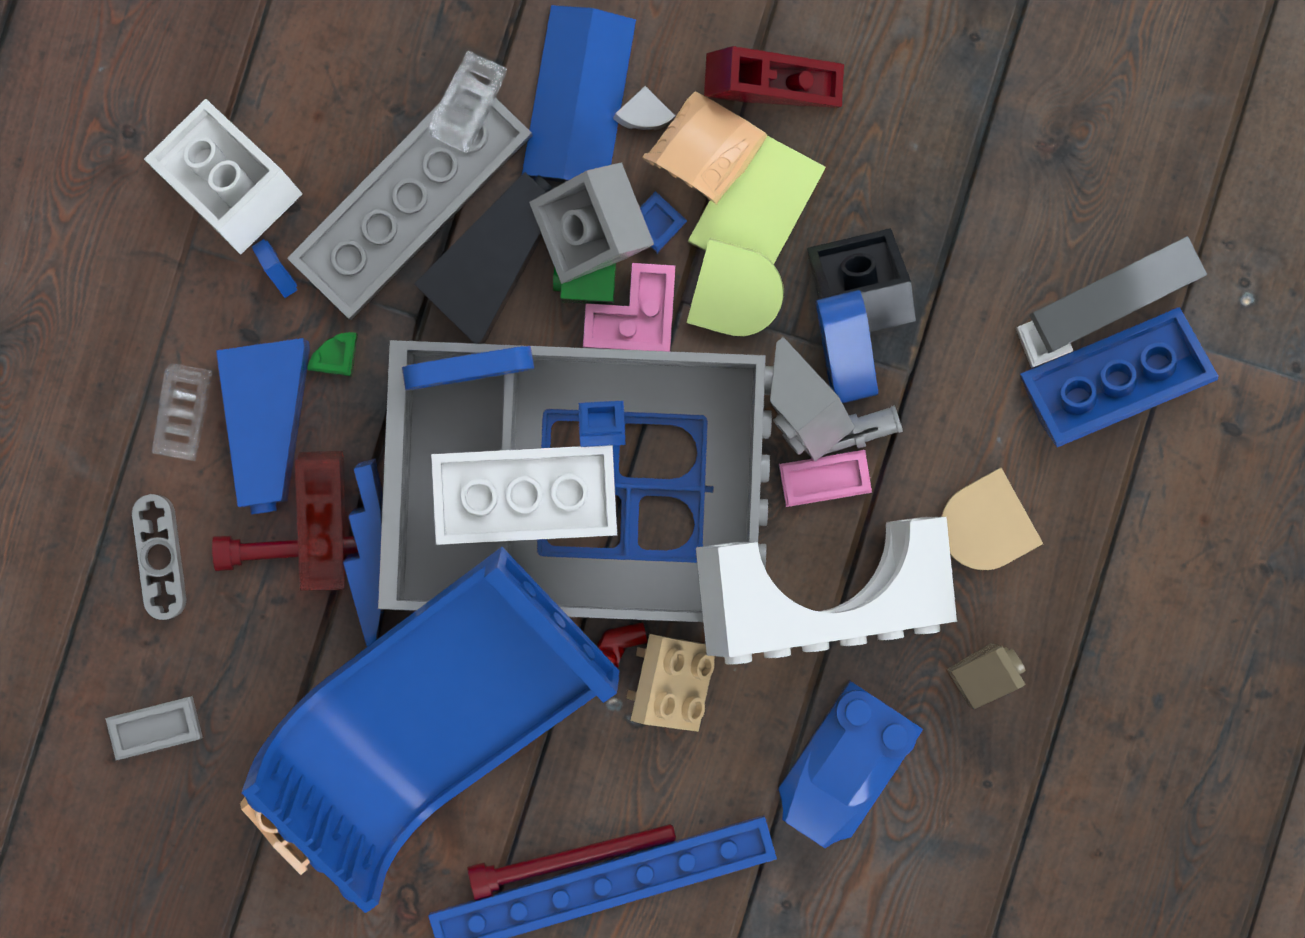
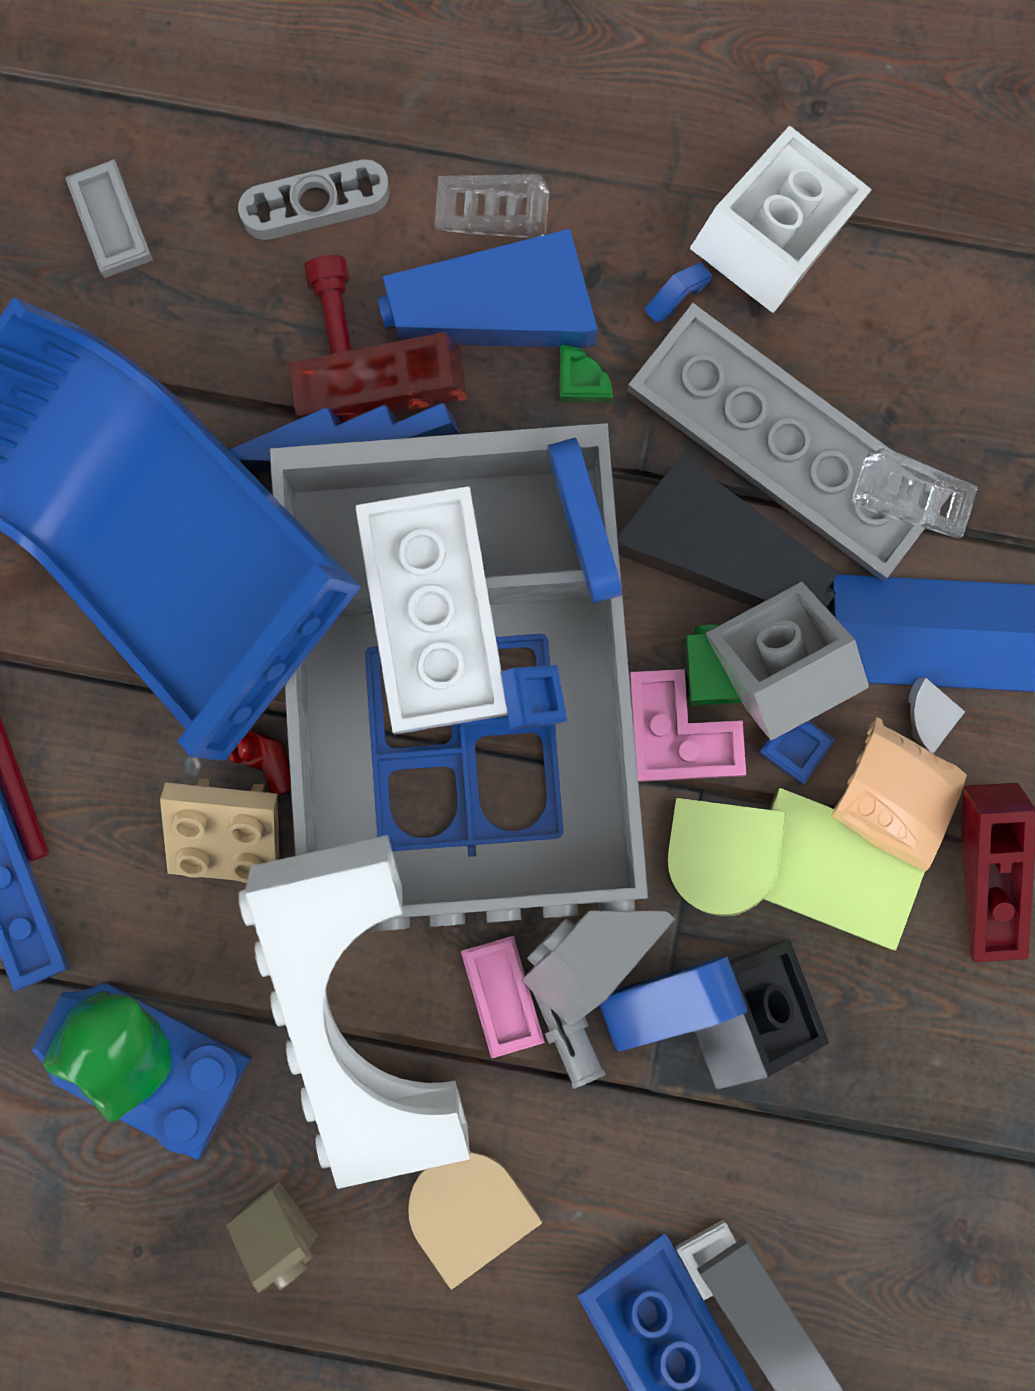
camera: 80 degrees right, 5 degrees down
(833, 785) = (111, 1053): none -> green piece

